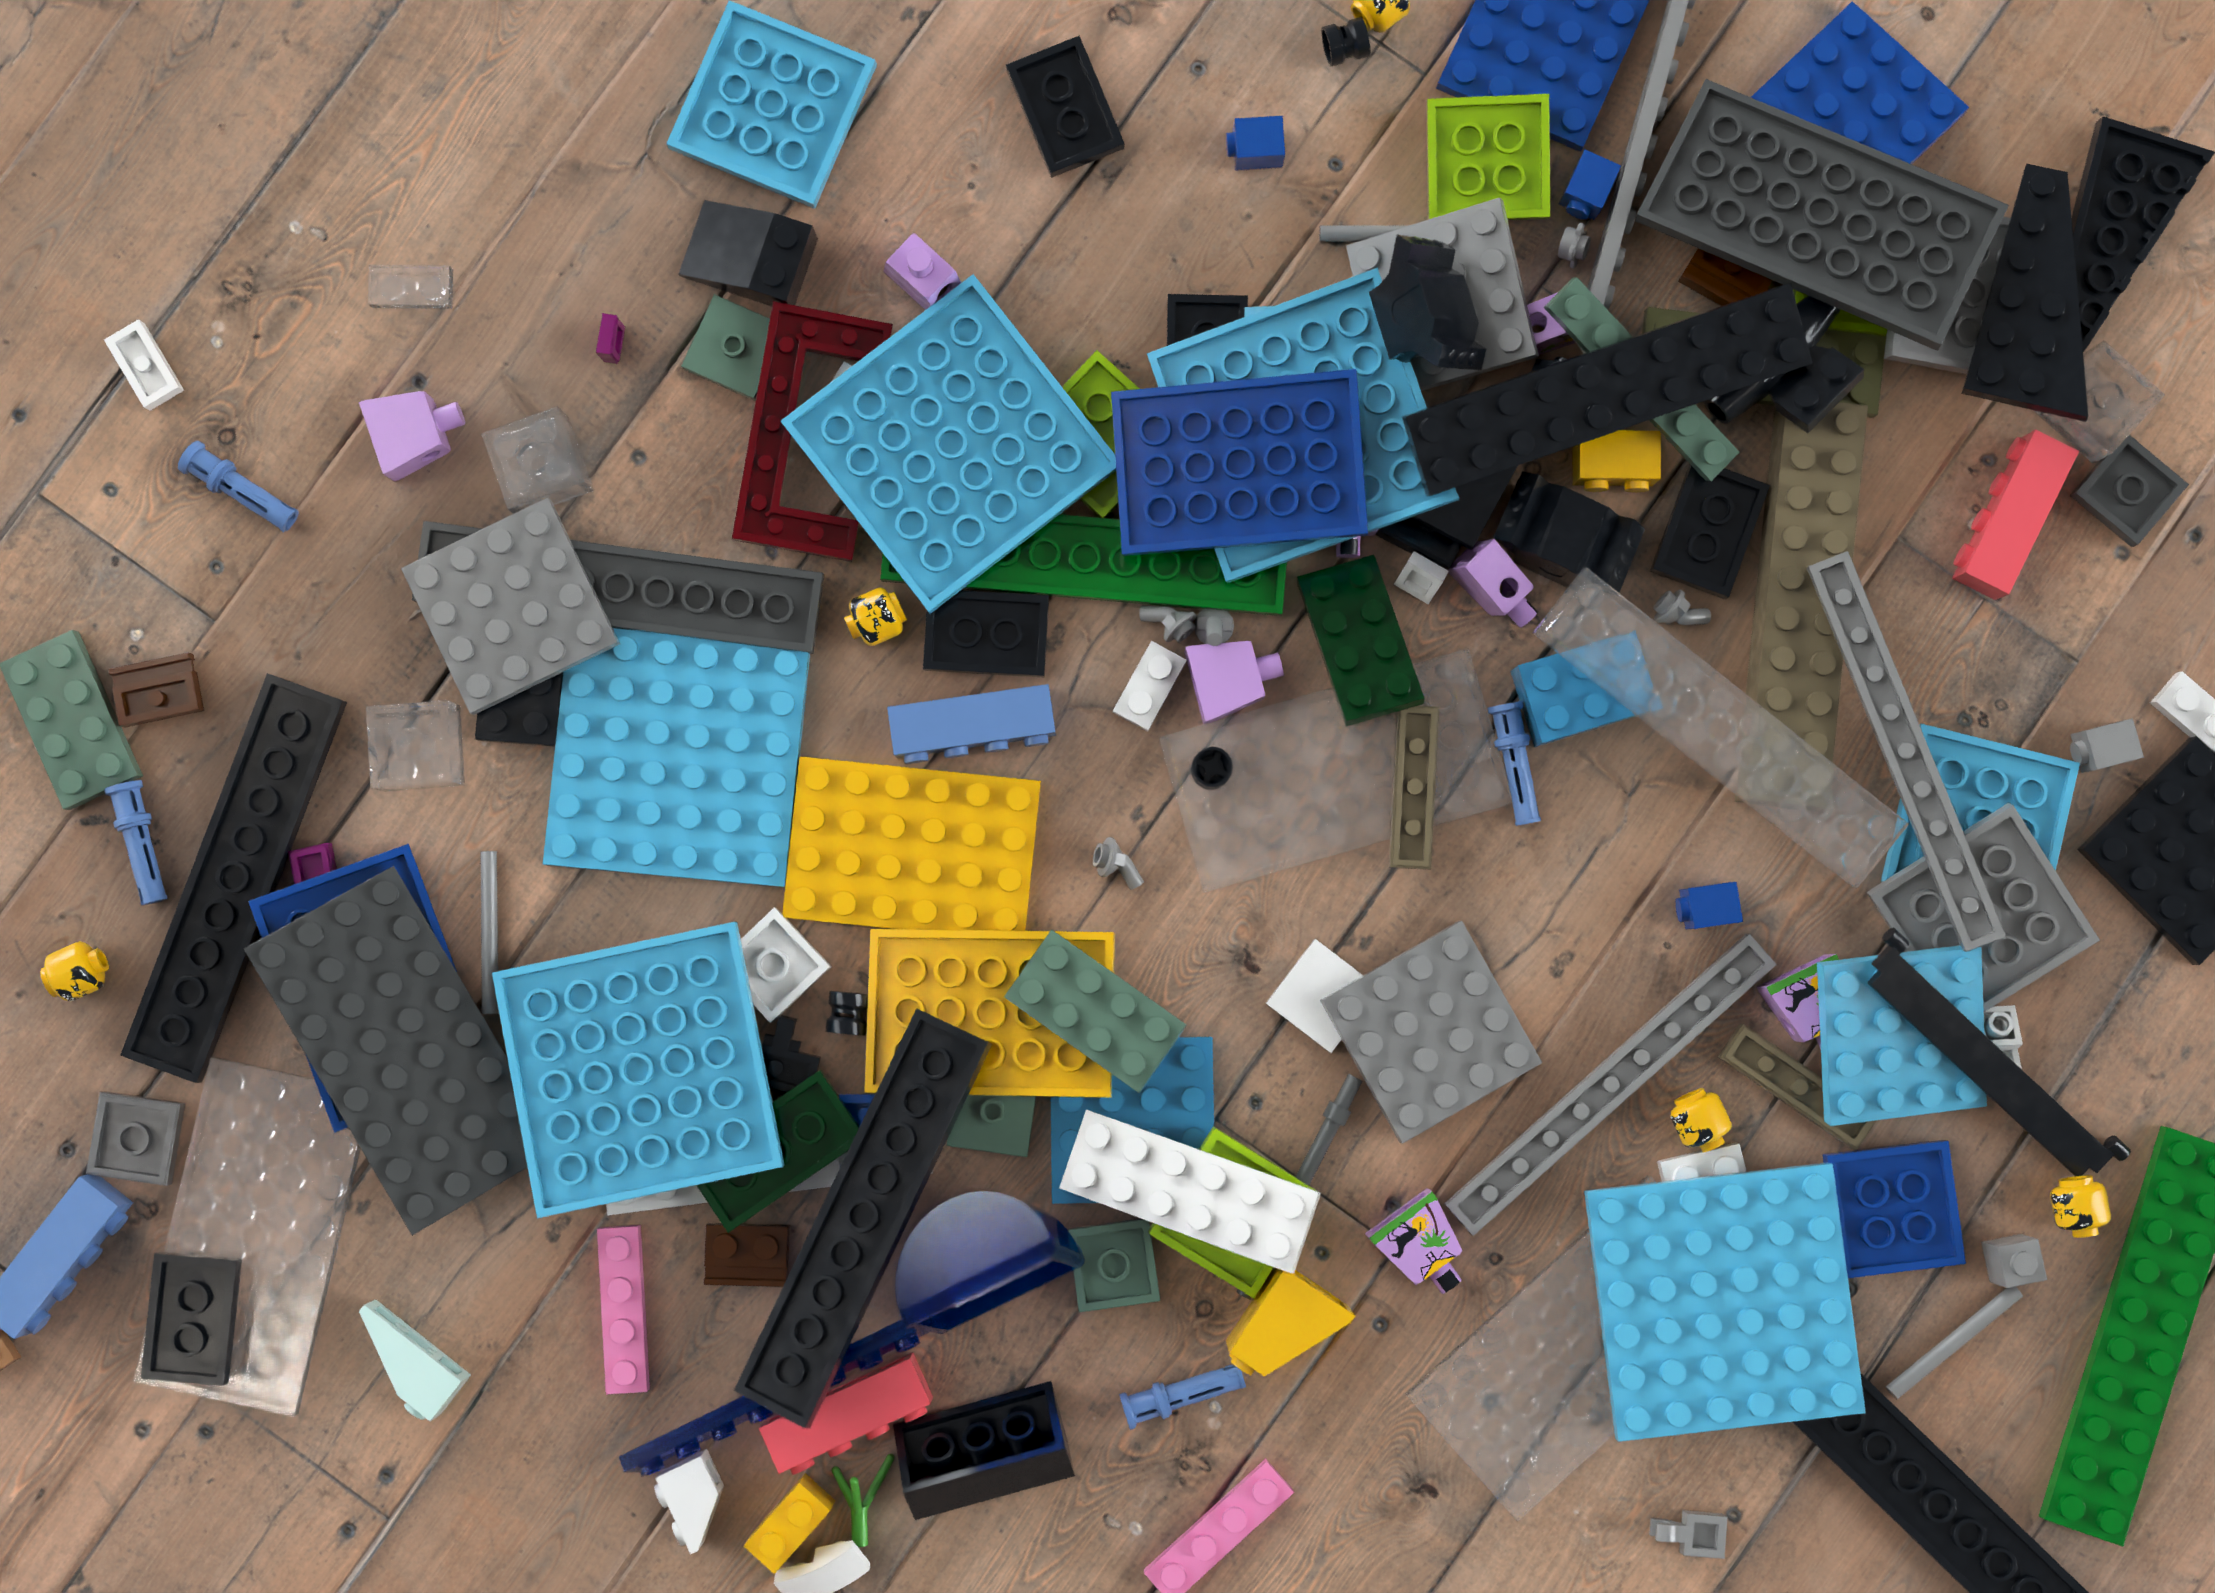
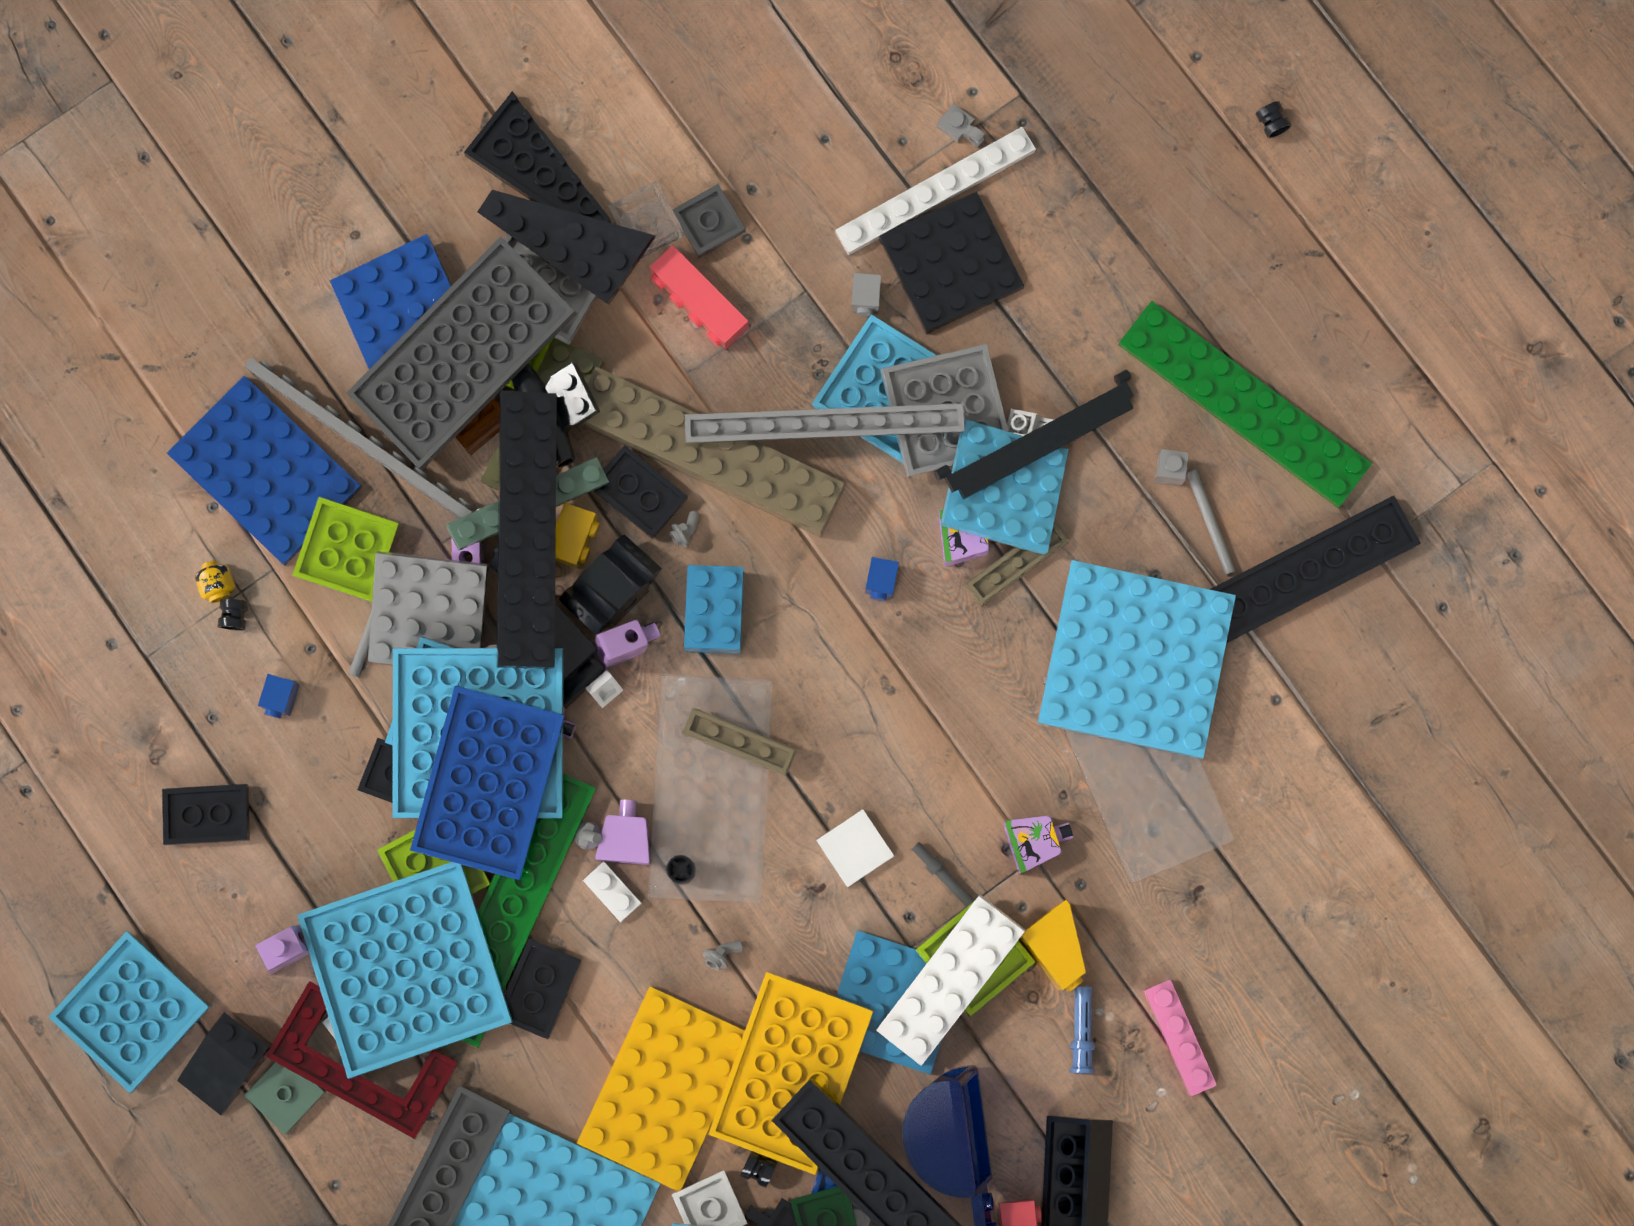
camera: 70 degrees left, 5 degrees down
(610, 338) = (248, 1176): magenta tile -> none
(875, 616) = (501, 1059): yellow head -> none
(972, 722) = (594, 1019): medium blue brick -> none
(994, 1124) = (865, 1095): sand green plate -> none
(1095, 1011) = (813, 1001): sand green plate -> none
(1116, 1266) = (986, 1045): sand green plate -> none
(1177, 623) = (578, 859): light grey plate -> none
(1360, 640) = (631, 743): dark green plate -> none
(1427, 307) = (431, 625): black slope -> none
(1431, 1032) = (902, 786): light grey plate -> none
(1513, 743) = (733, 667): medium blue pin -> none
(1574, 245) = (422, 513): light grey plate -> none
(1589, 185) = (387, 490): blue brick -> none
(1610, 1084) = (975, 683): light grey plate -> none
(1698, 1533) = (1280, 727): light grey plate -> none
(1700, 1119) = (1016, 632): yellow head -> none
(1719, 1161) = (1045, 641): white plate -> none
(1720, 728) = (768, 534): clear plate -> none
(1898, 1208) = (1114, 528): blue plate -> none
(2080, 1205) = (1150, 414): yellow head -> none

